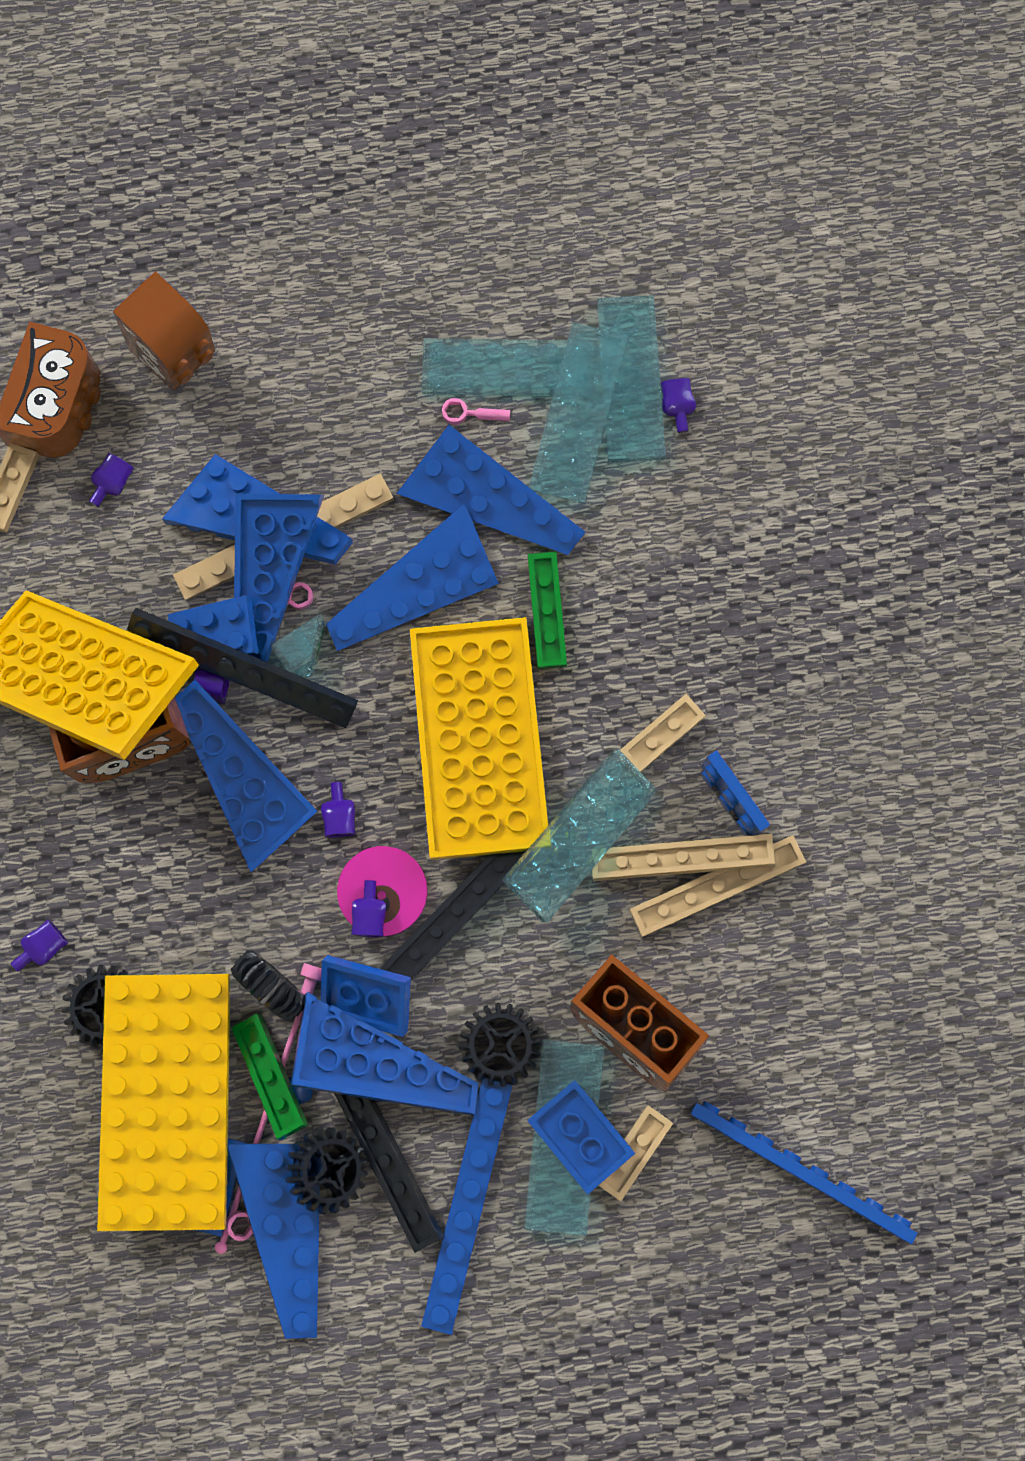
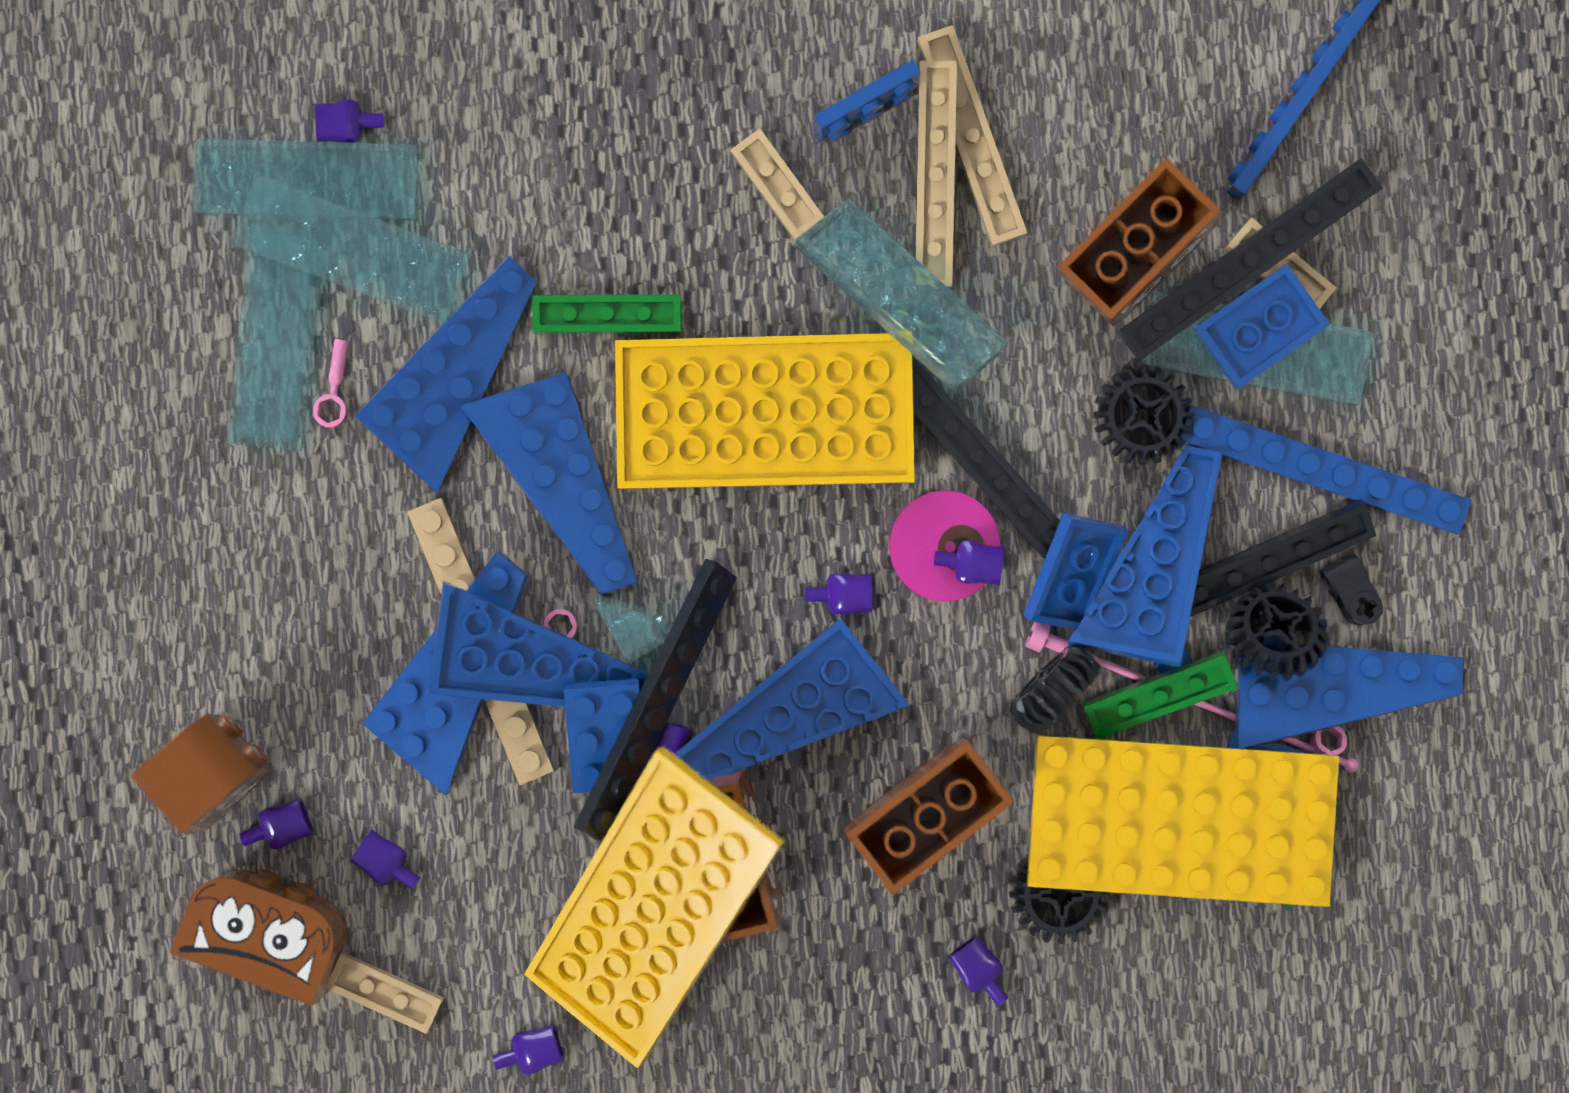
camera: 90 degrees left, 10 degrees up
(134, 401) = (280, 825): none -> dark purple piece
(157, 886) = (927, 815): none -> dark orange brick
(372, 1233) = (1350, 586): none -> black piece
(637, 1123) = (1249, 259): none -> black plate

